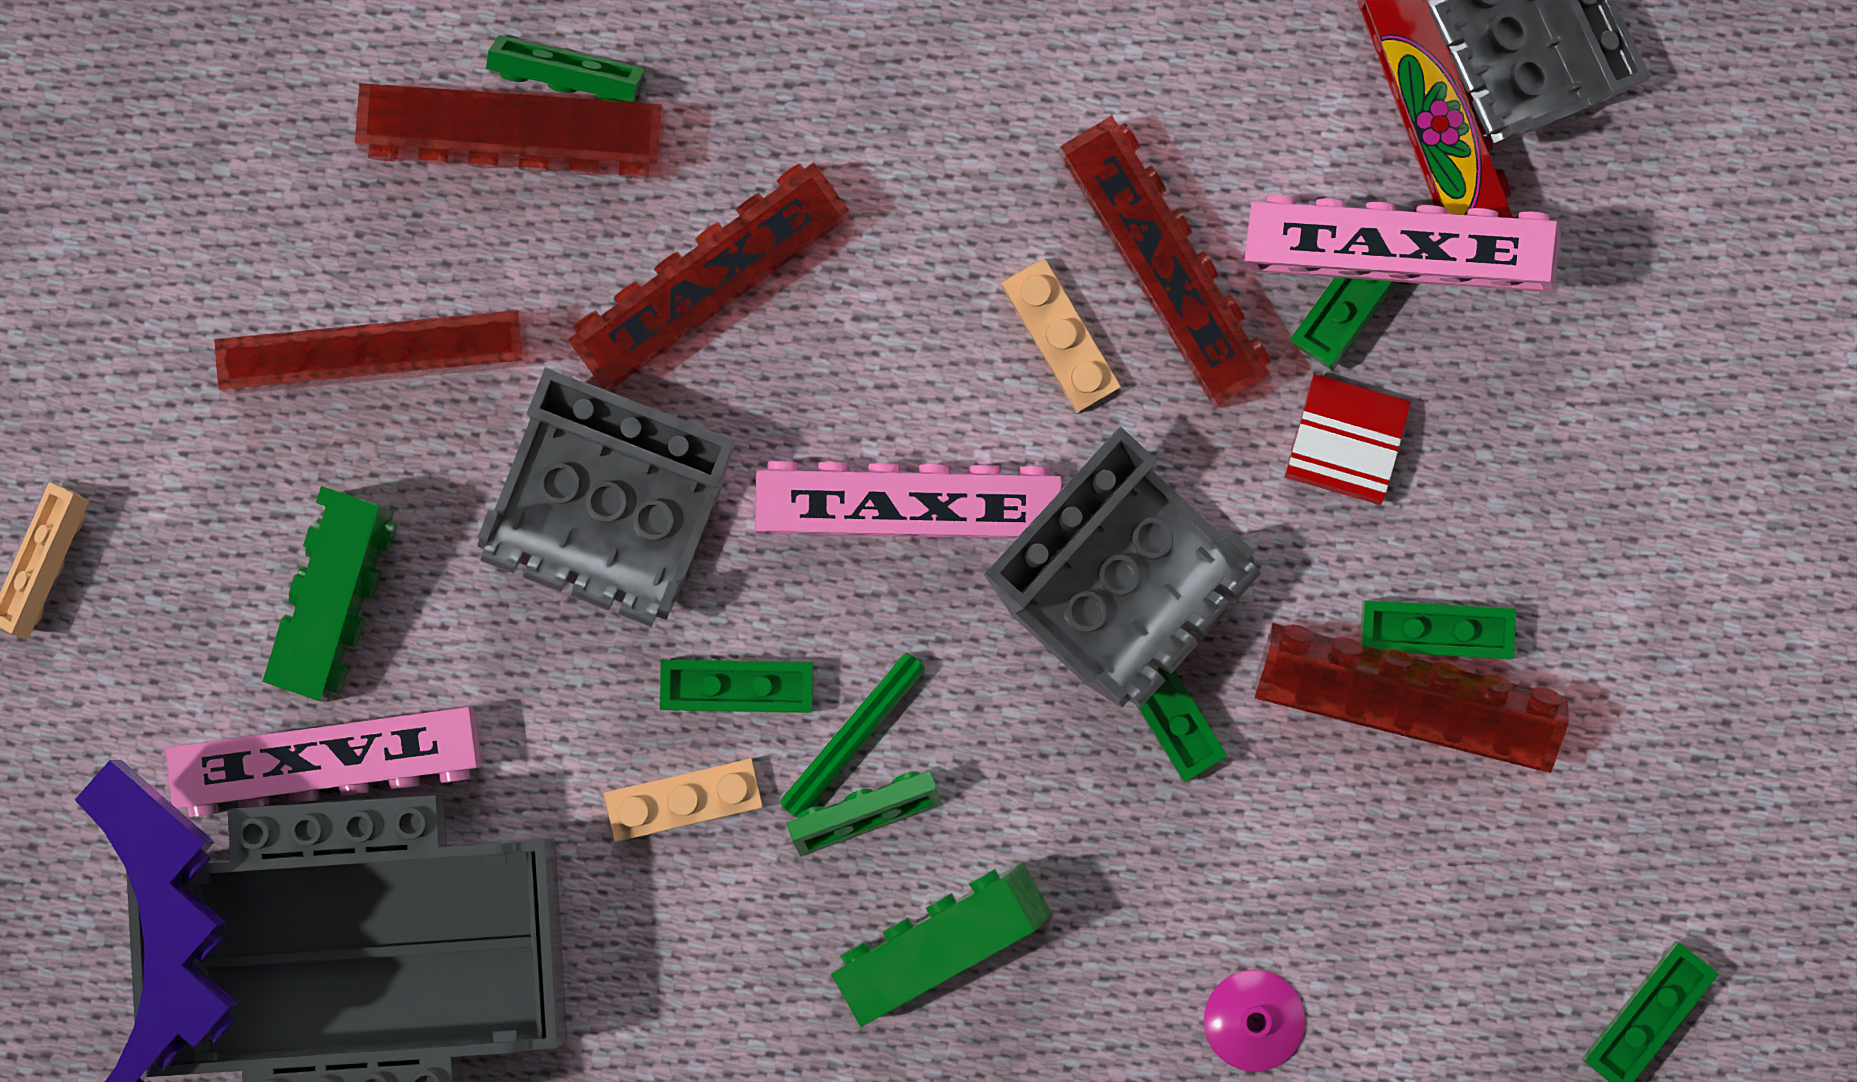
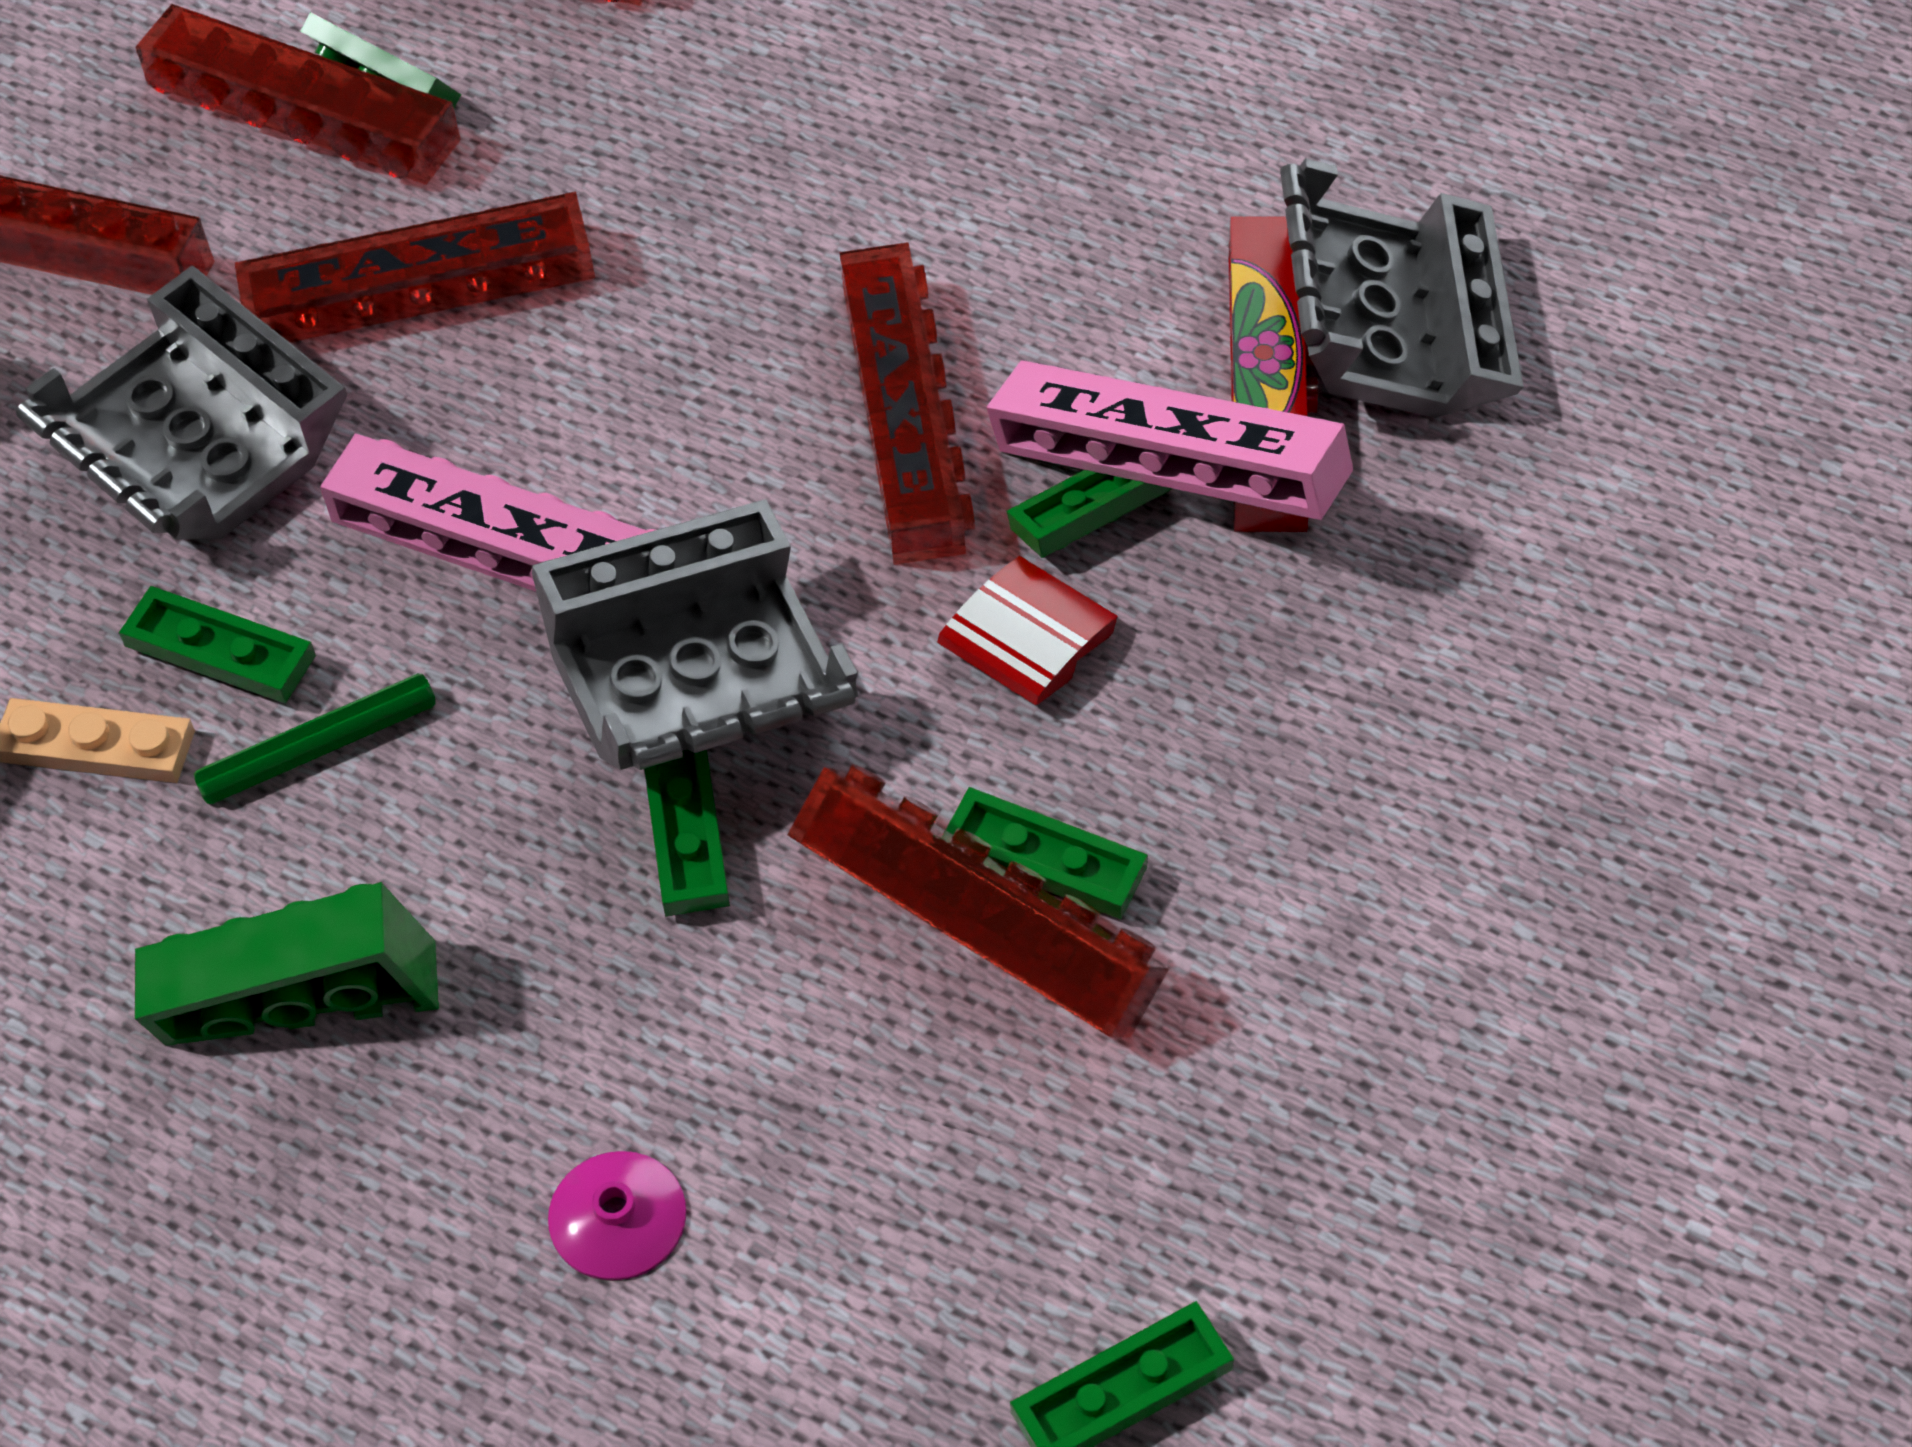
camera: 25 degrees right, 30 degrees down
(863, 812) = (279, 811): green plate -> none
(1060, 335) = (758, 436): light nougat plate -> none

